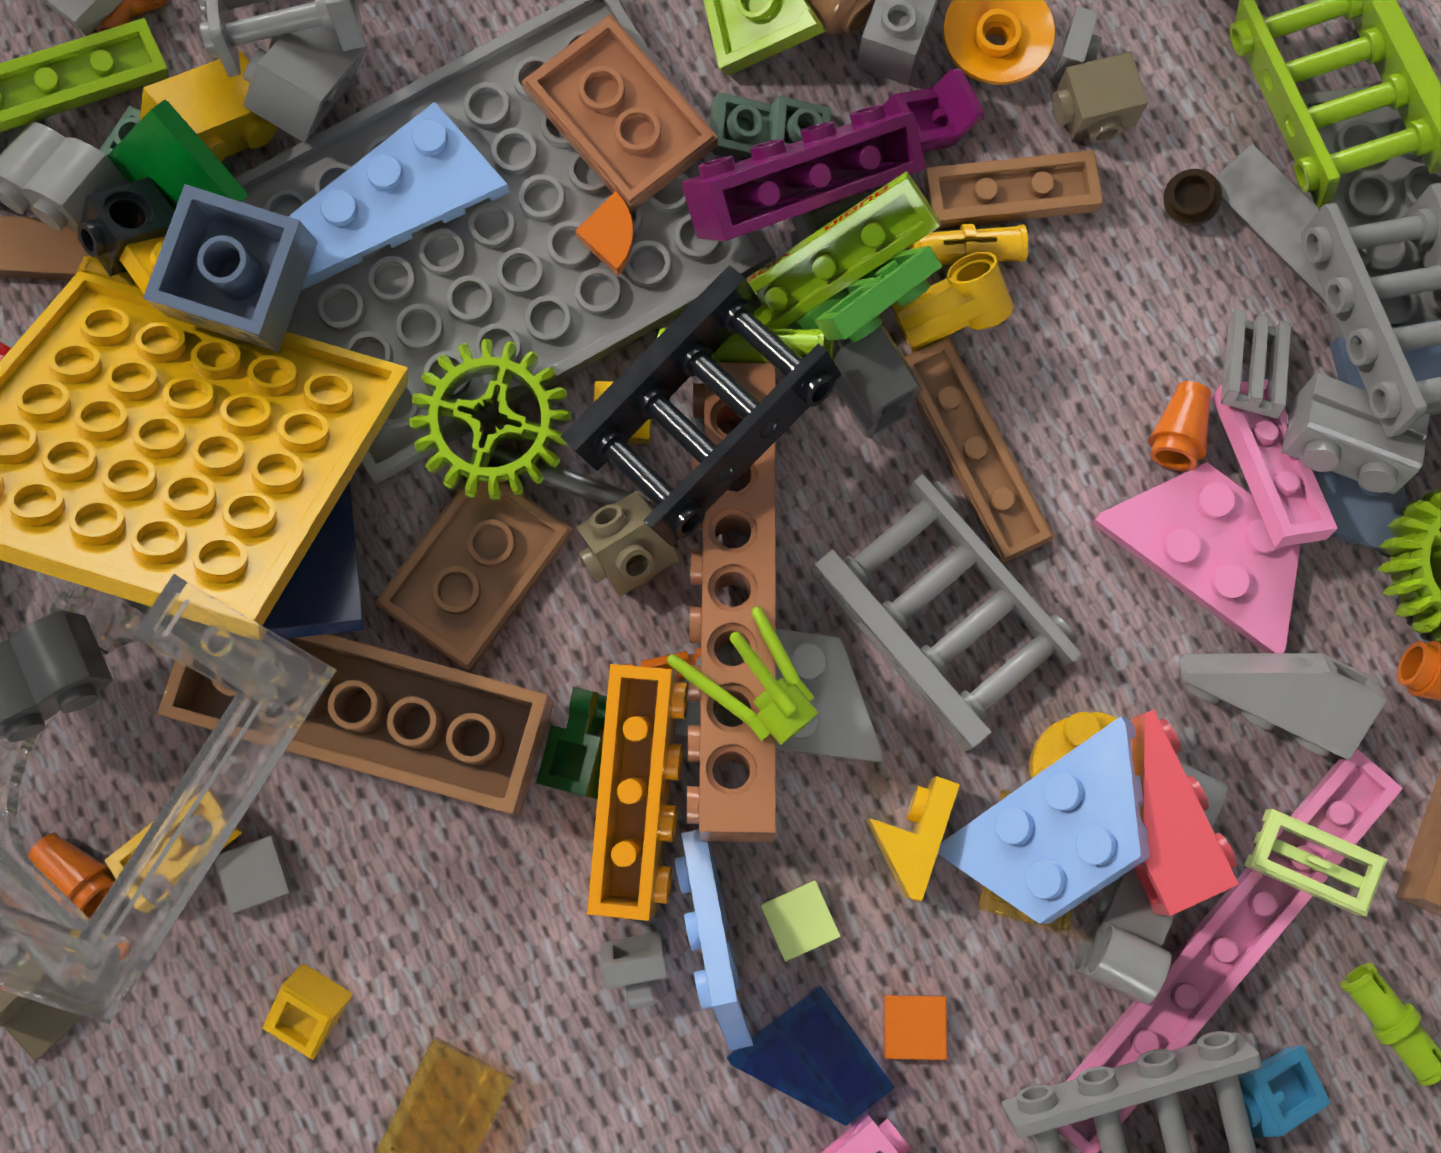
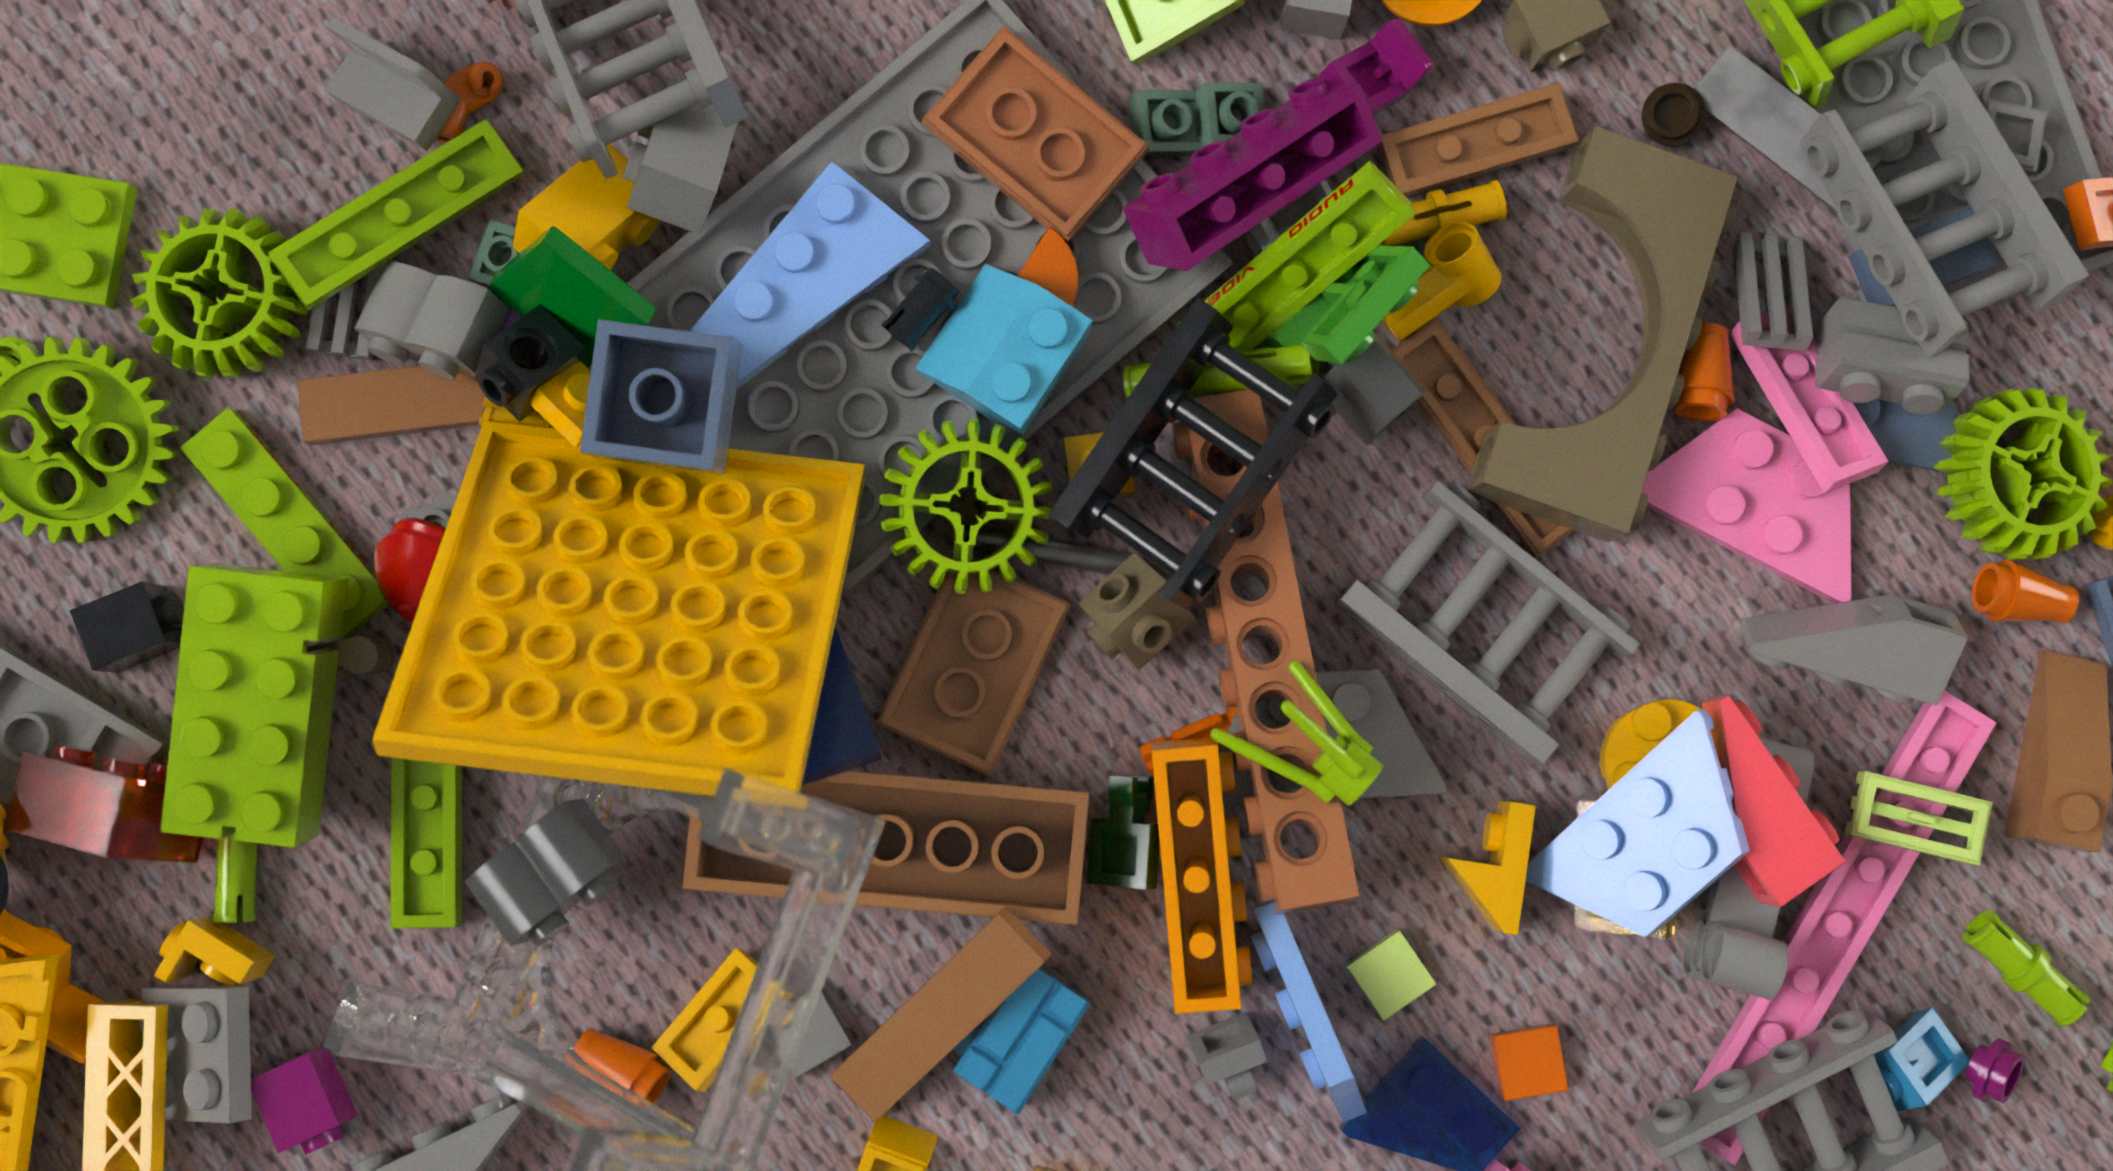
camera: 10 degrees left, 5 degrees up
(372, 876) = (941, 1014): none -> medium nougat tile
(444, 910) = (1021, 1039): none -> dark azure brick
(487, 241) = (921, 308): none -> black pin
(557, 290) = (1006, 348): none -> medium azure slope
(1169, 286) = (1668, 225): none -> dark tan arch
(1352, 1117) = (1994, 1071): none -> magenta plate

